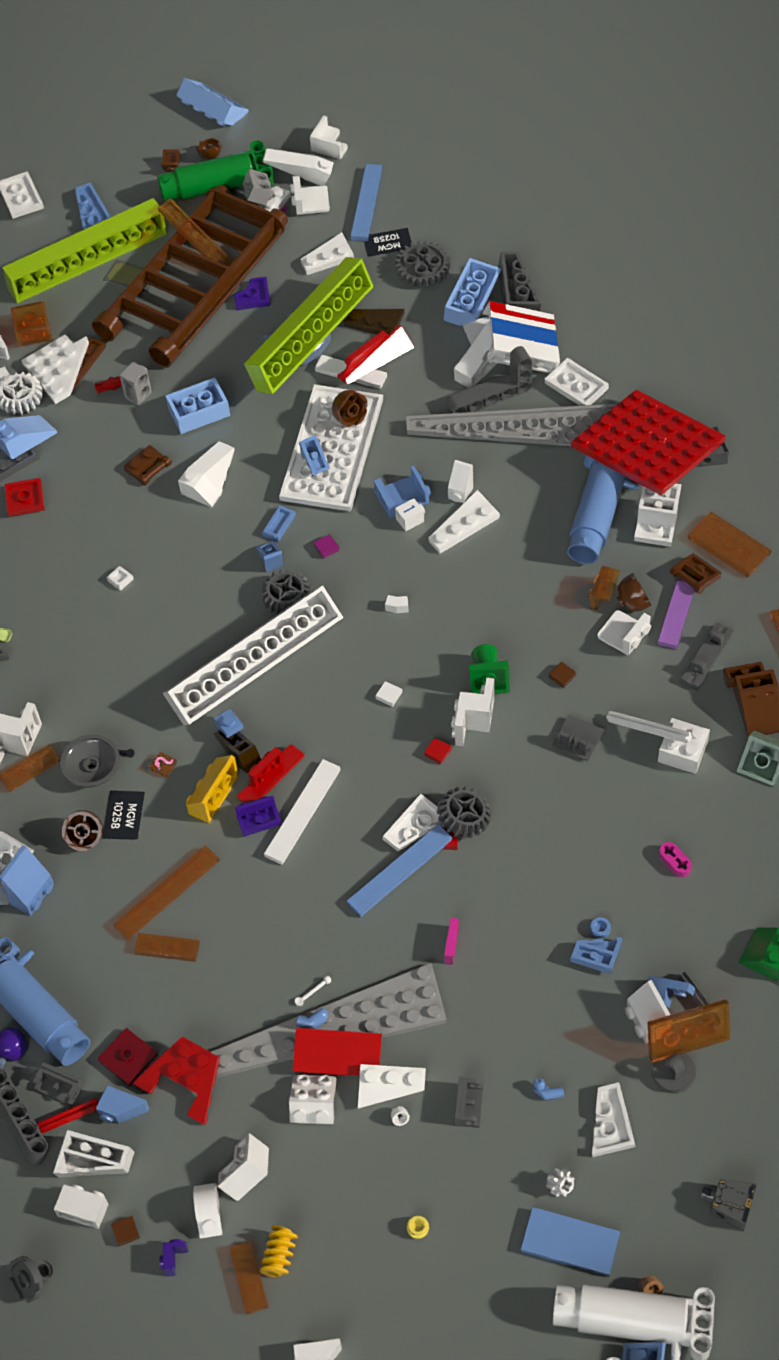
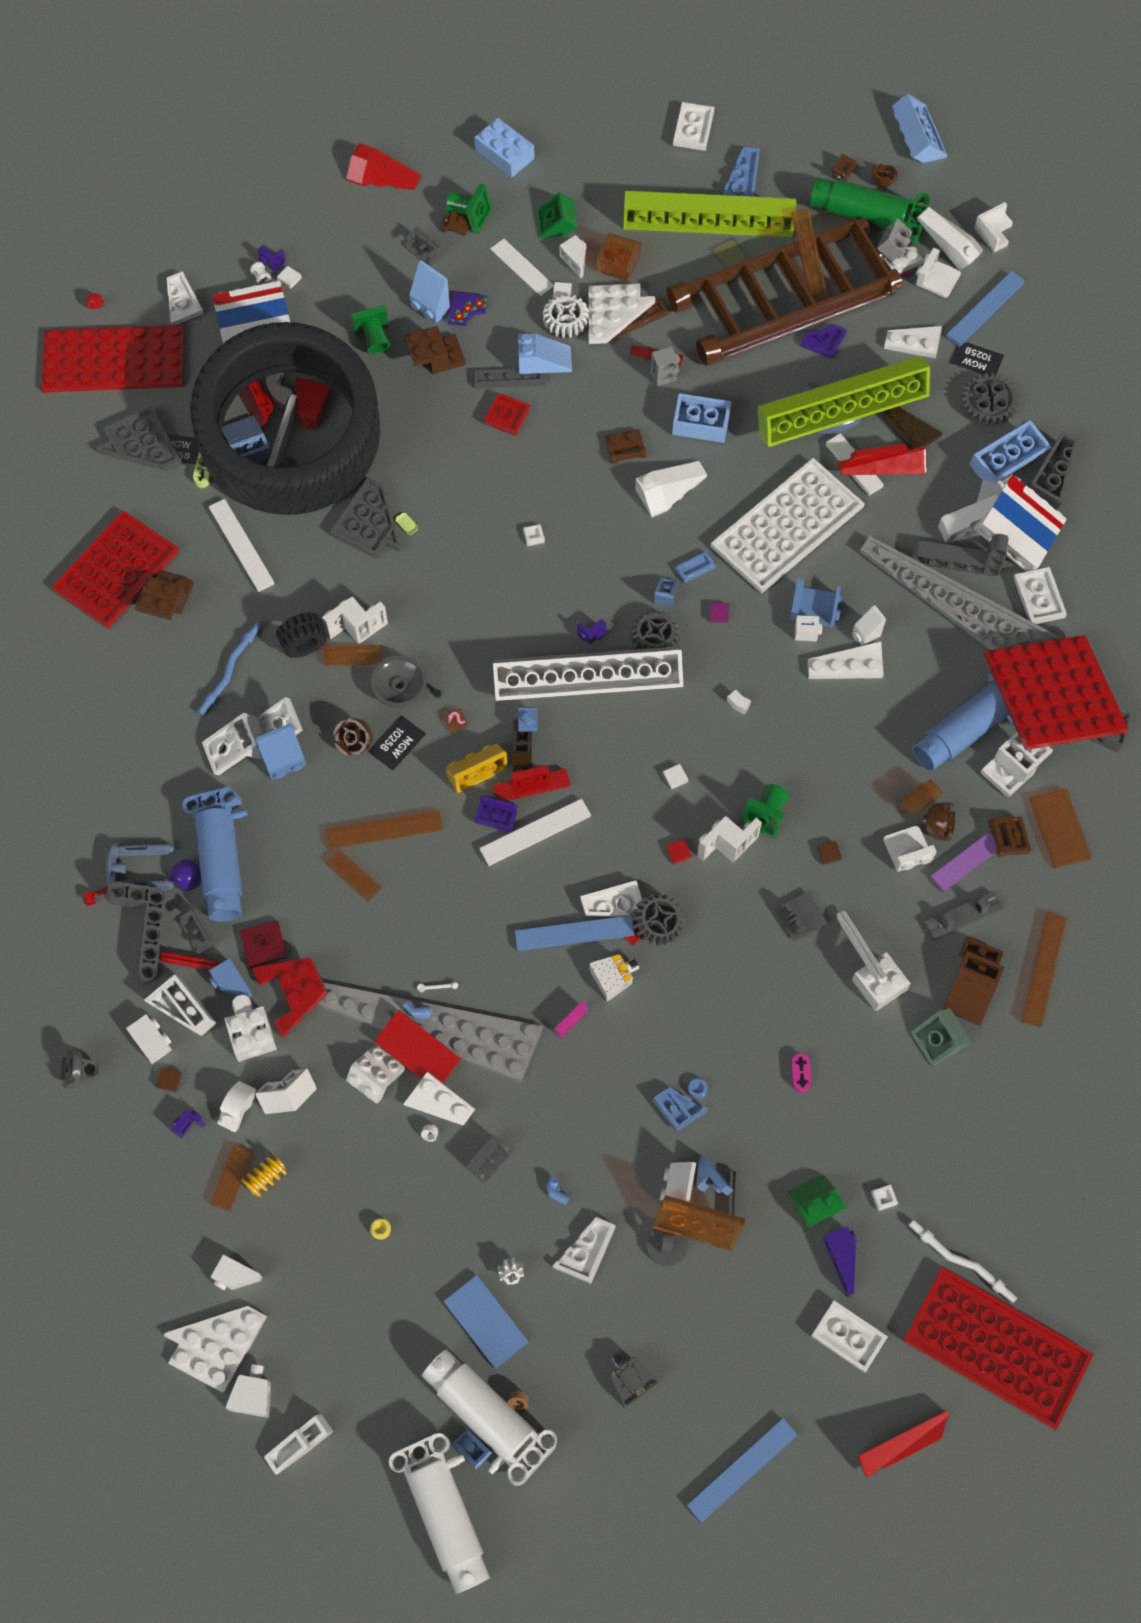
camera: 30 degrees right, 10 degrees up
(173, 1134) = (249, 1029): none -> white brick
(230, 626) = (595, 632): none -> dark purple bracket
(314, 455) = (762, 525): medium blue slope -> none
(349, 408) = (823, 499): reddish brown cylinder -> none
(458, 882) = (613, 975): none -> white torso

